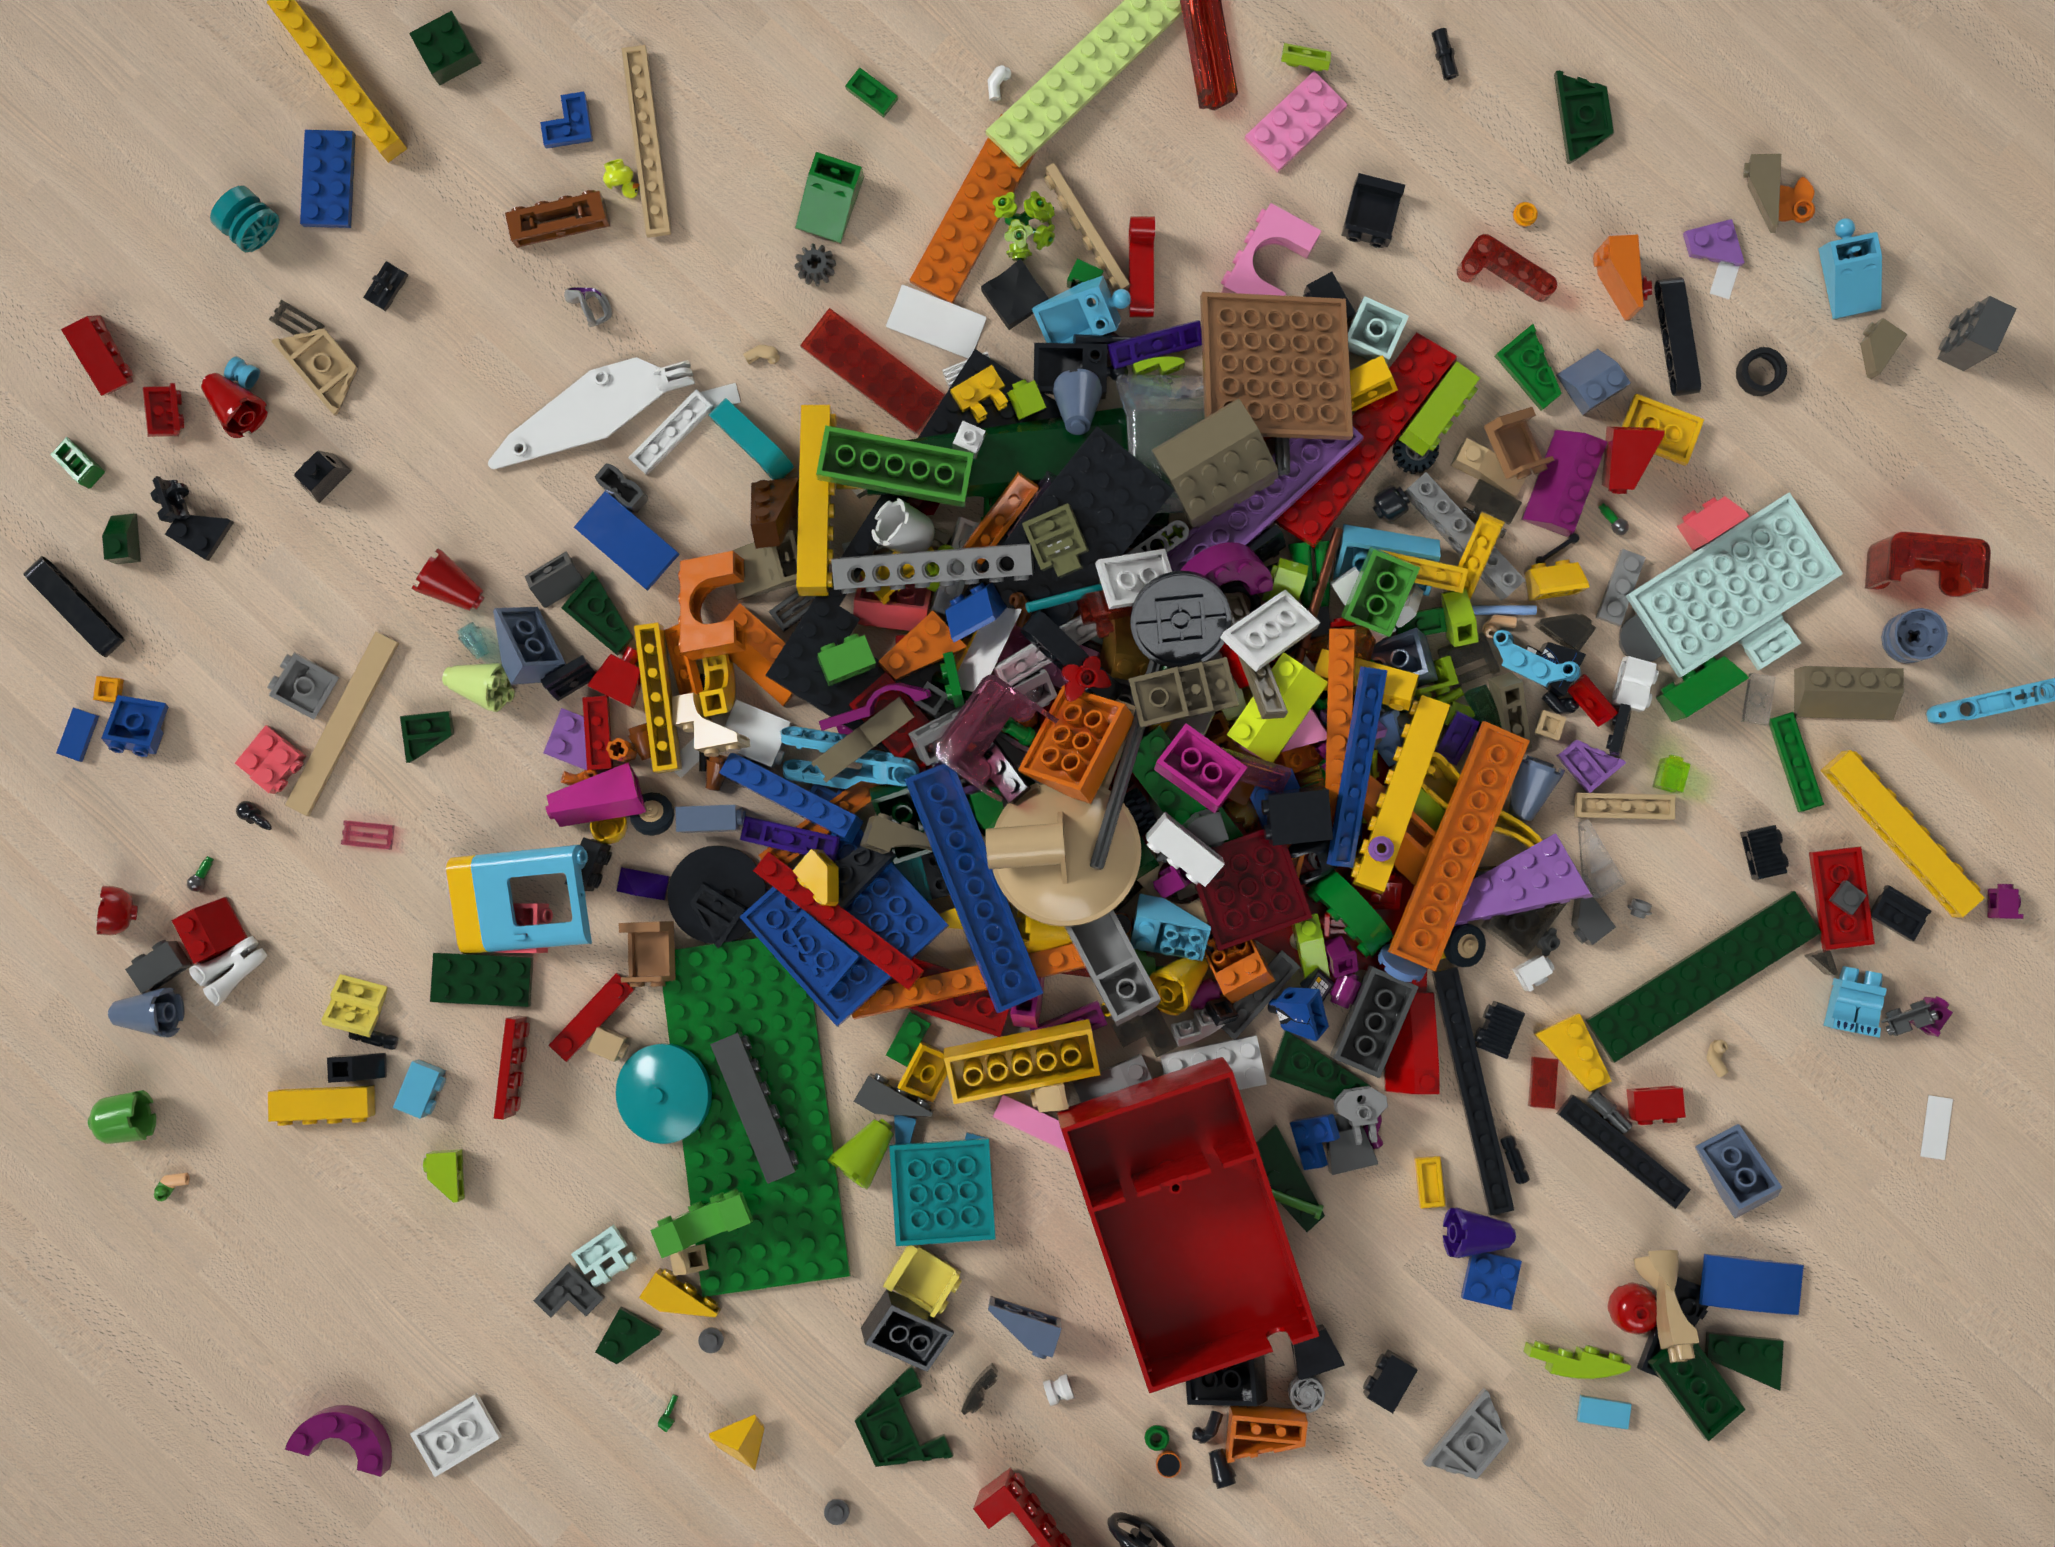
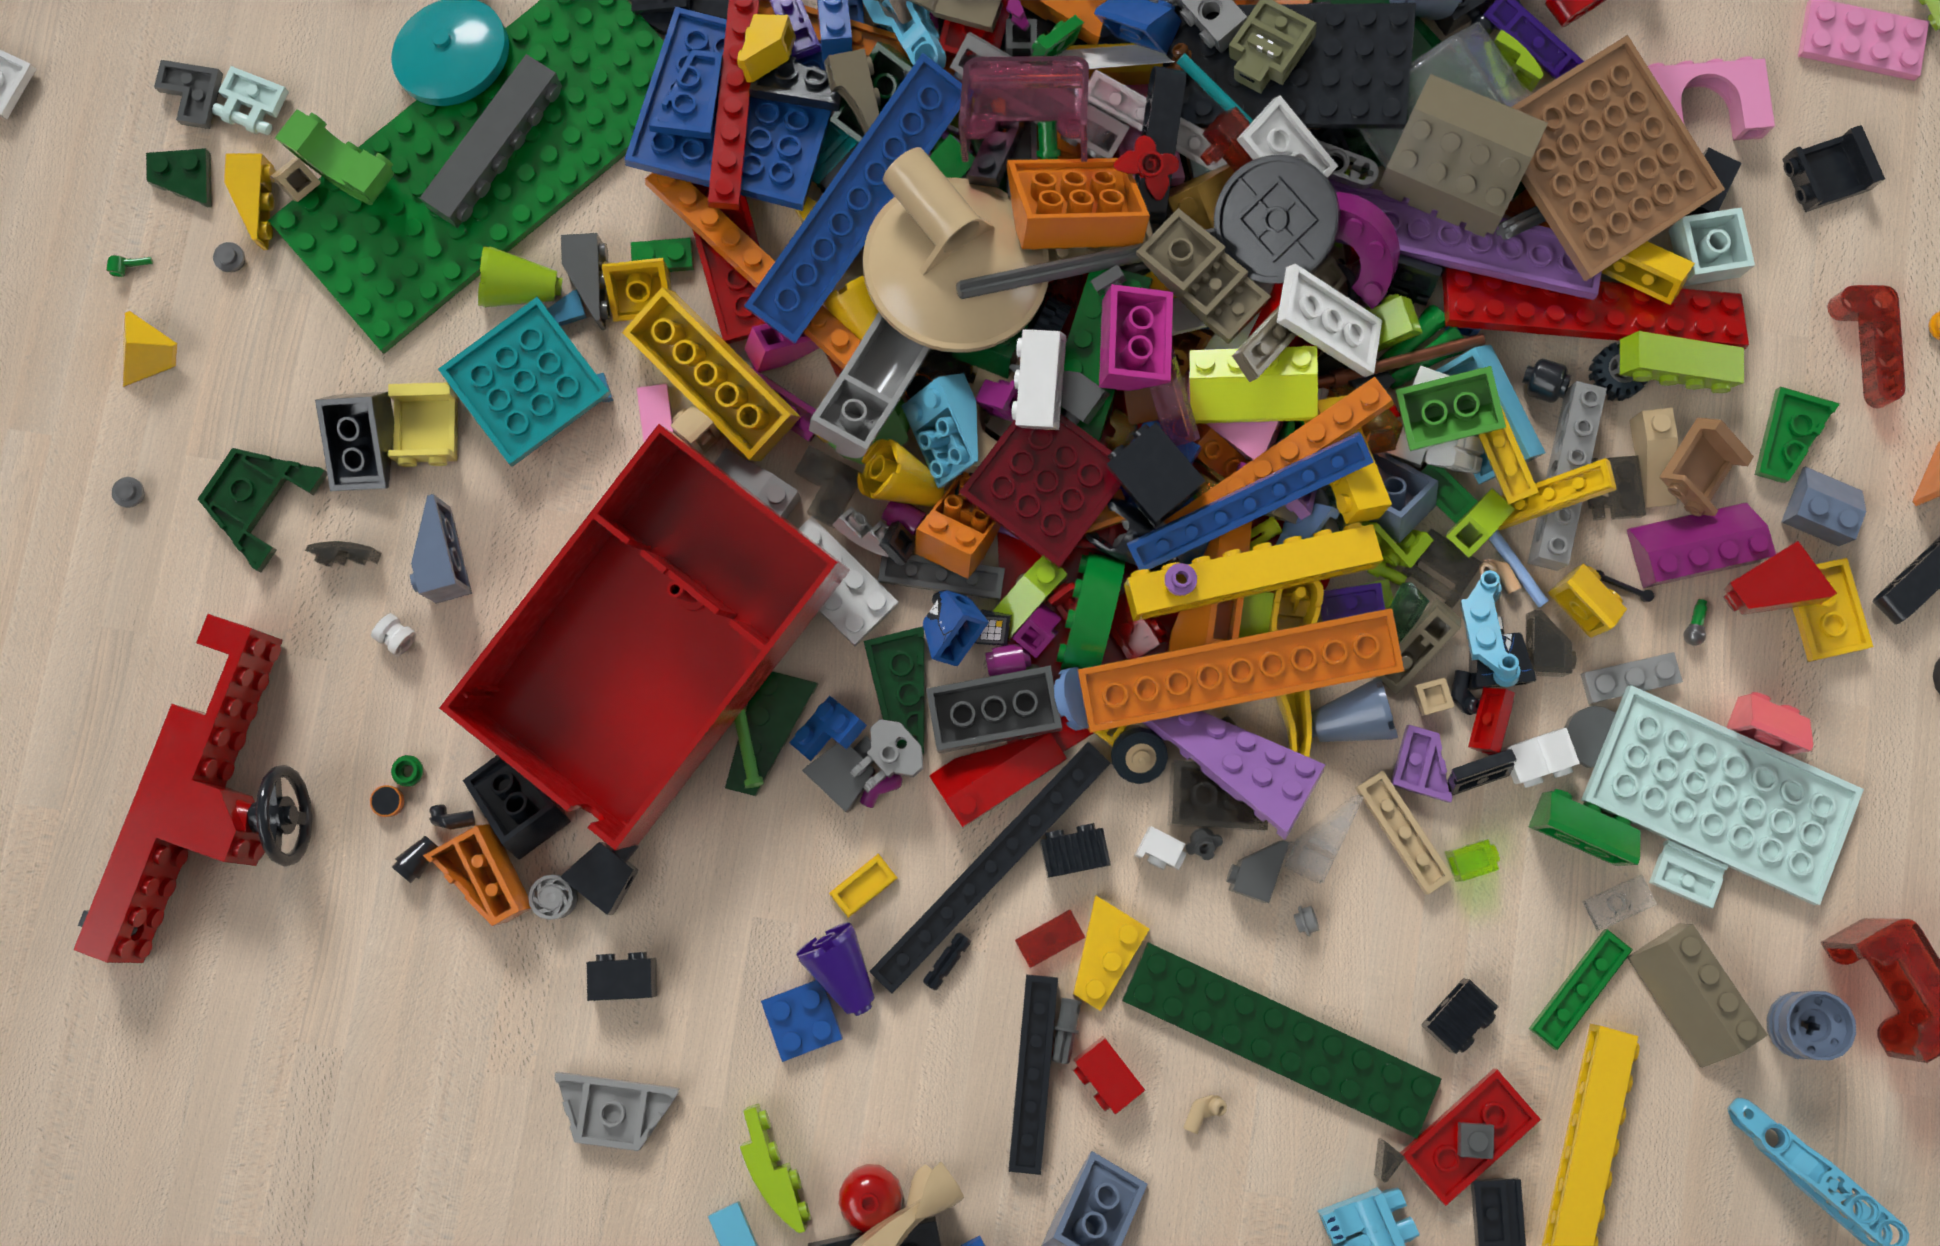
camera: 55 degrees right, 5 degrees down
(1147, 757) = (1104, 281): none -> dark grey plate

